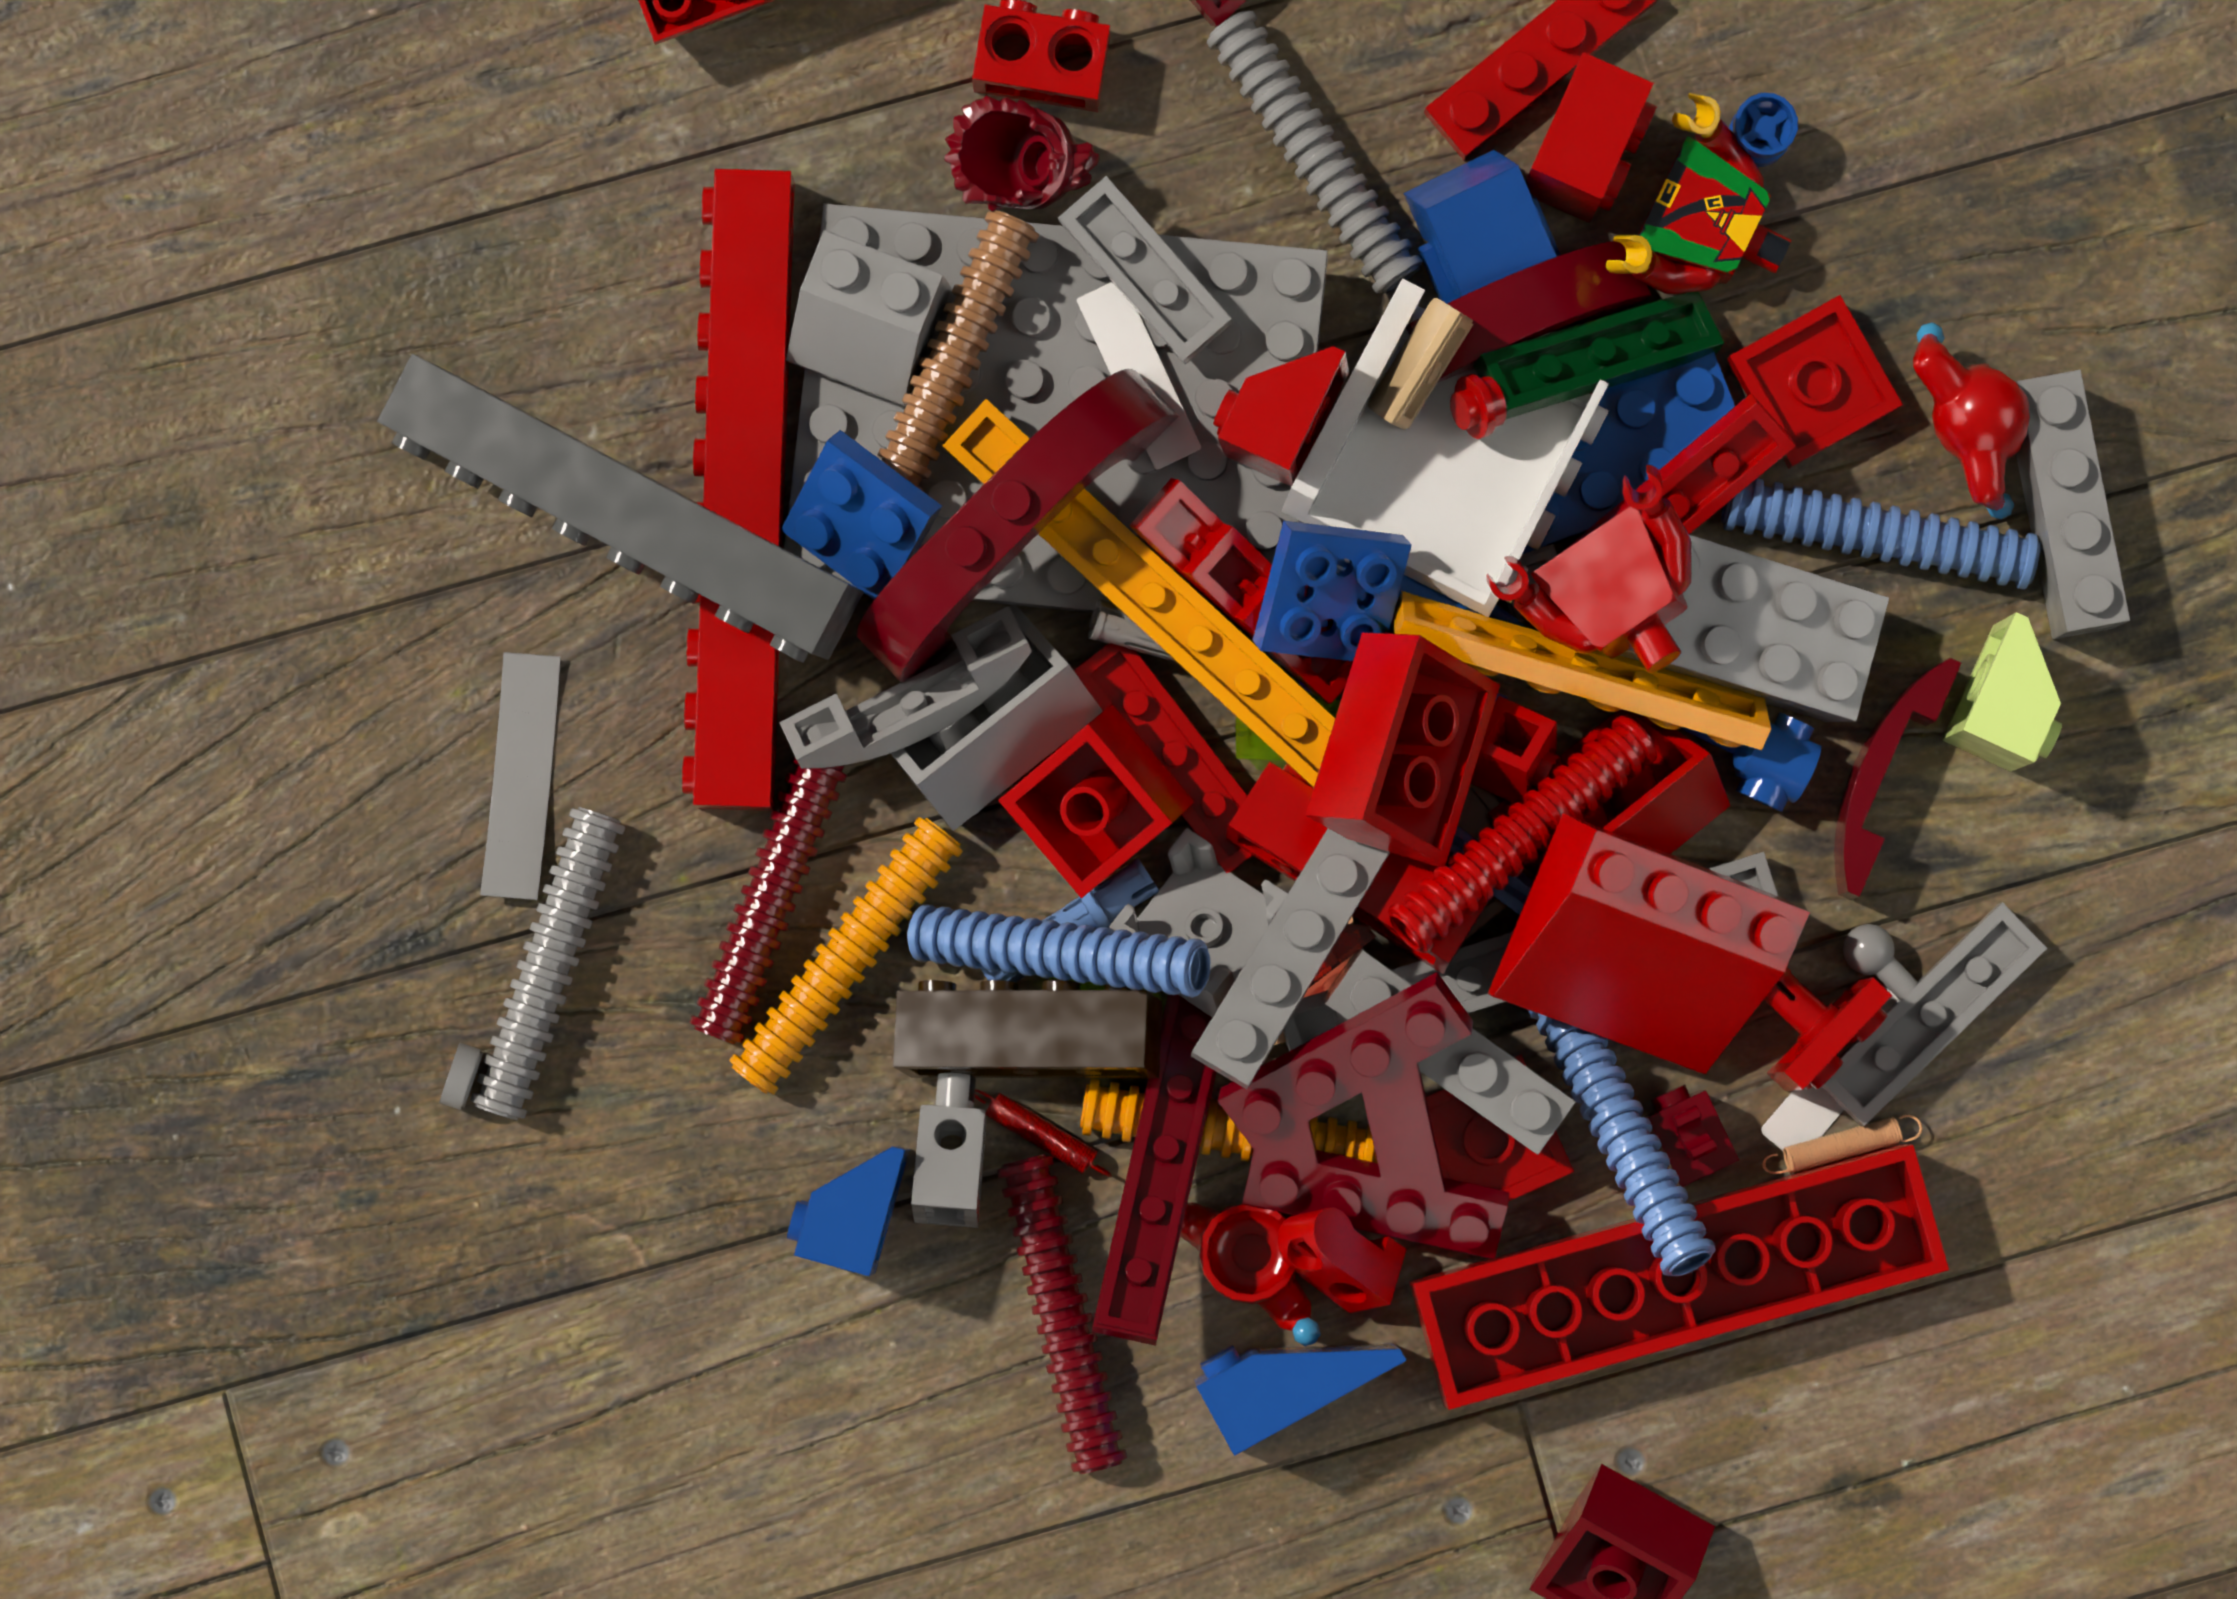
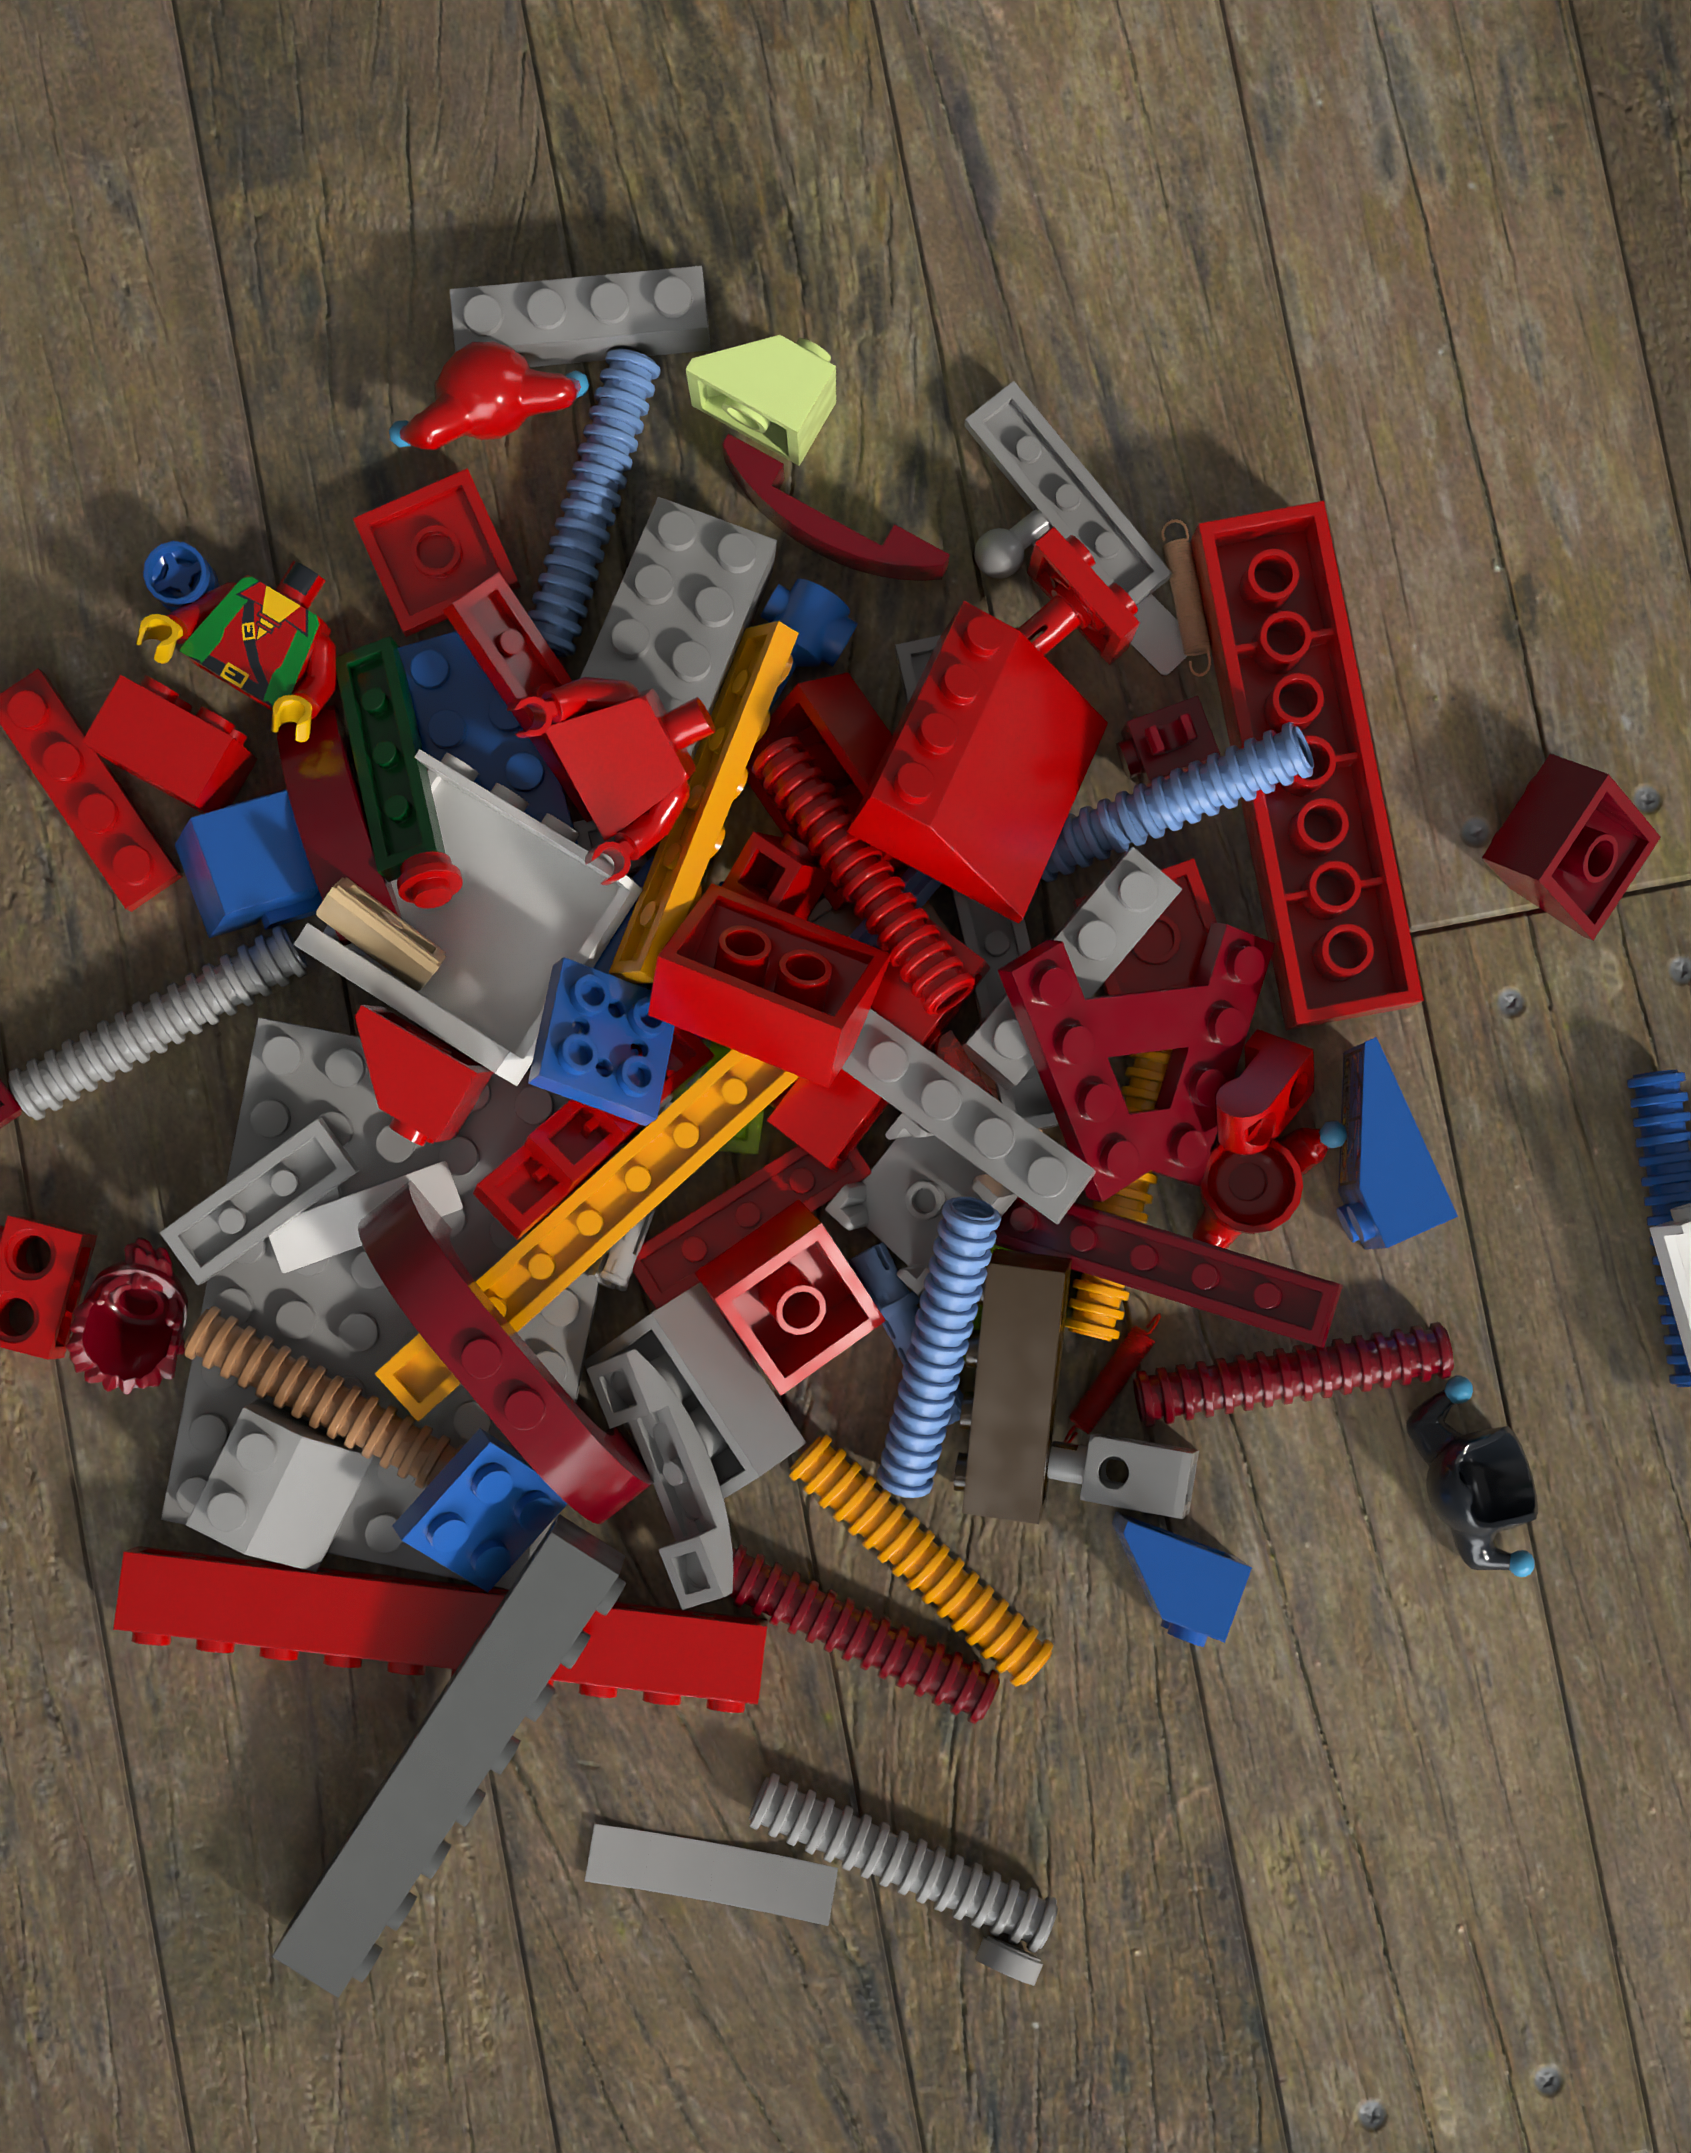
camera: 85 degrees left, 0 degrees up
(971, 1505) = (1475, 1481): none -> black piece

